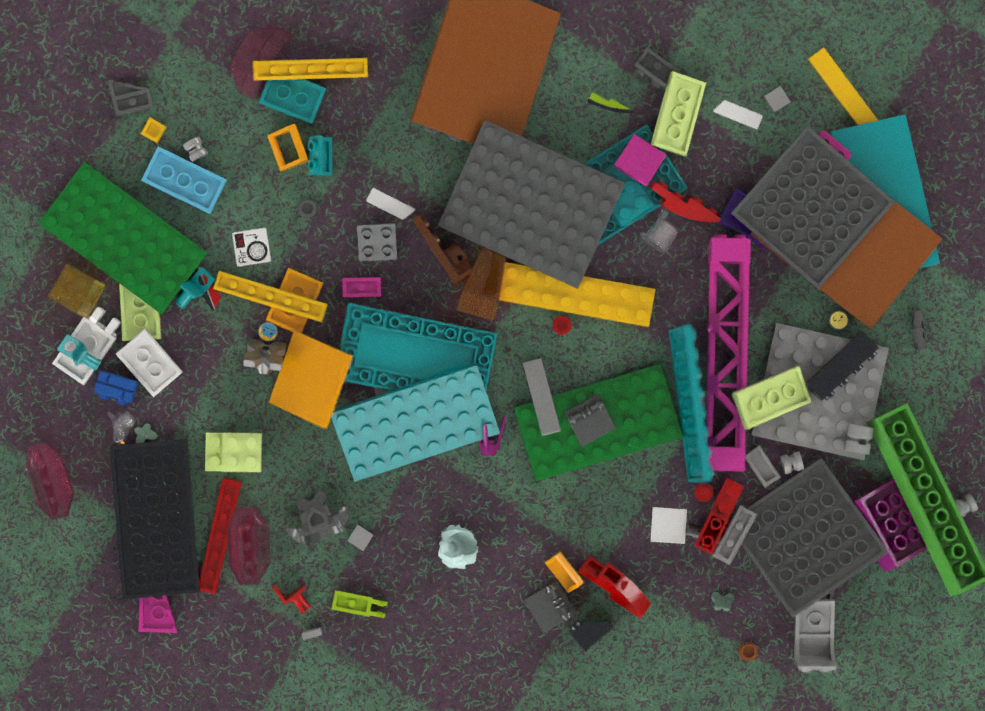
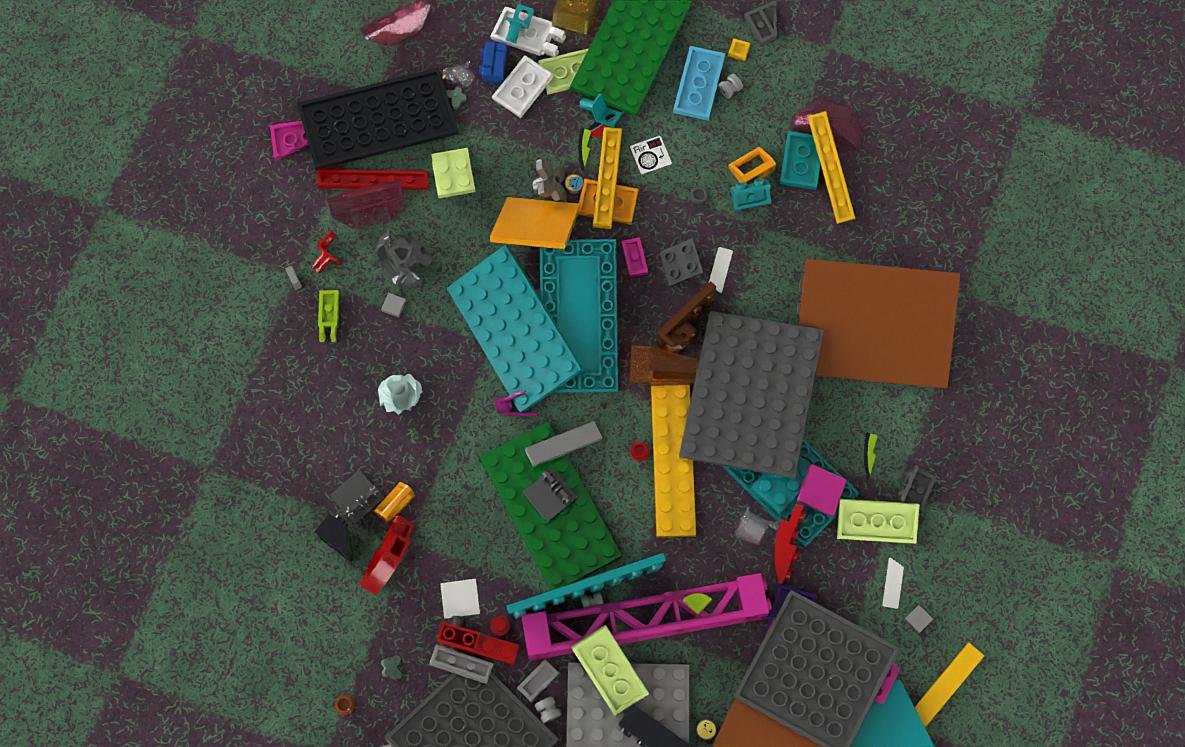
camera: 80 degrees right, 15 degrees down
(231, 314) = (582, 147): none -> sticker
(726, 302) = (697, 602): none -> lime tile

